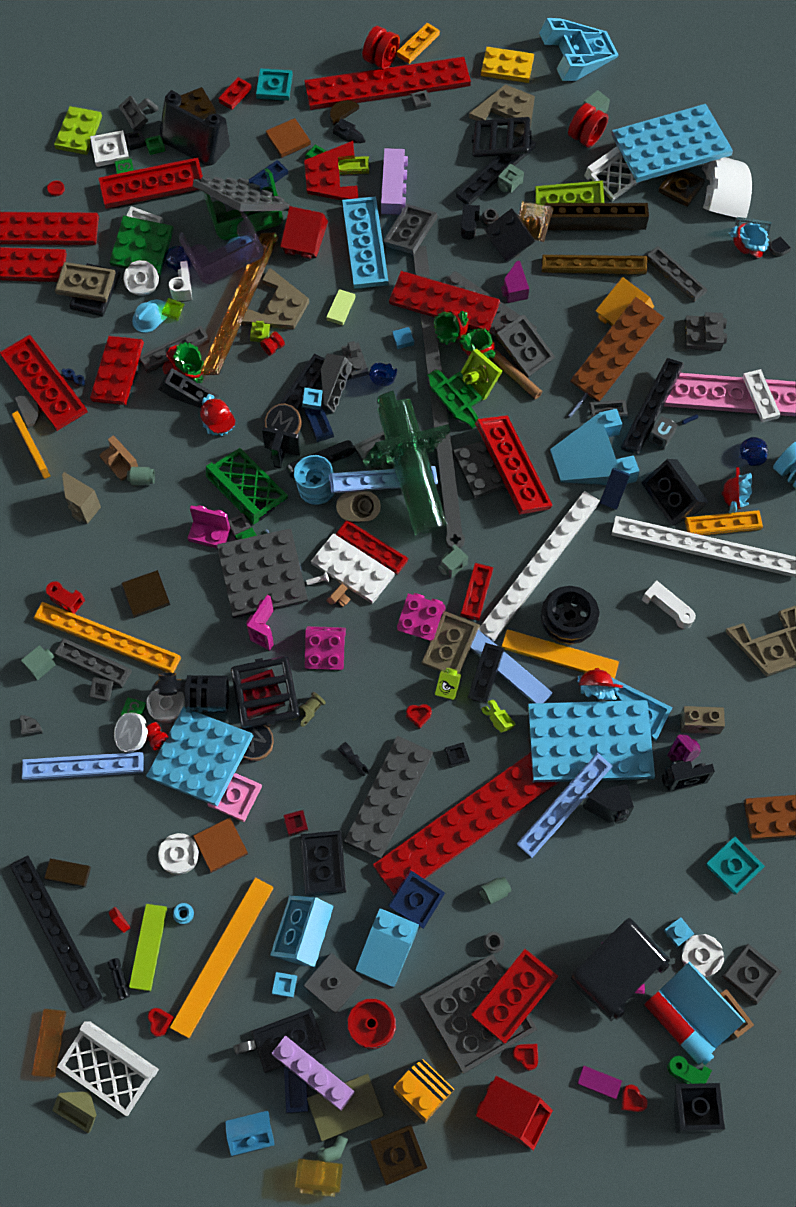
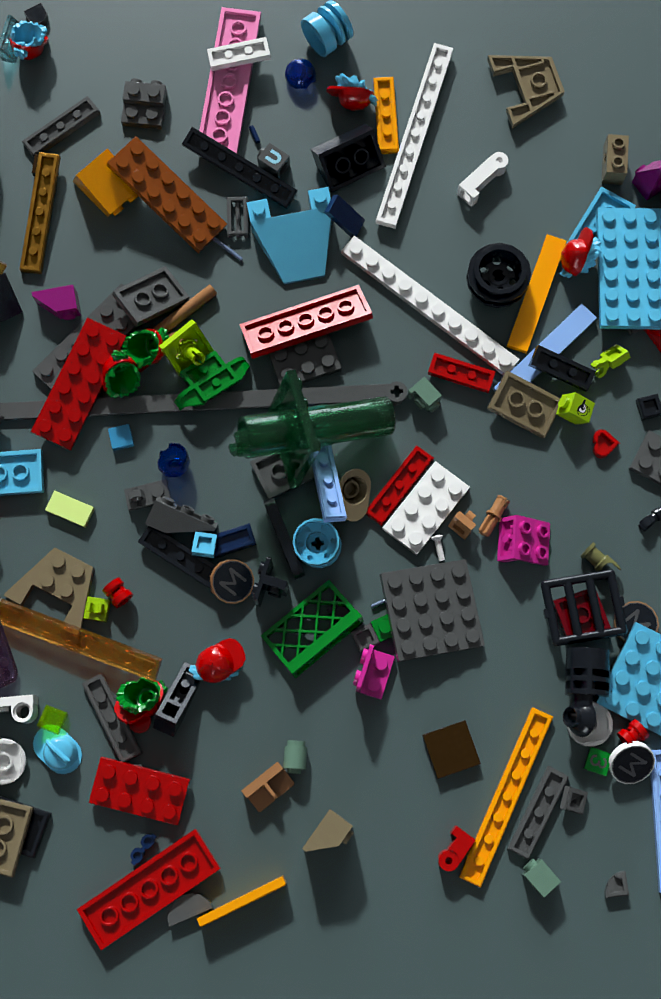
camera: 85 degrees left, 10 degrees up
(256, 624) = (503, 616): dark pink bracket -> none
(346, 621) = (493, 515): none -> medium nougat axle
(420, 616) = (493, 432): dark pink bracket -> none

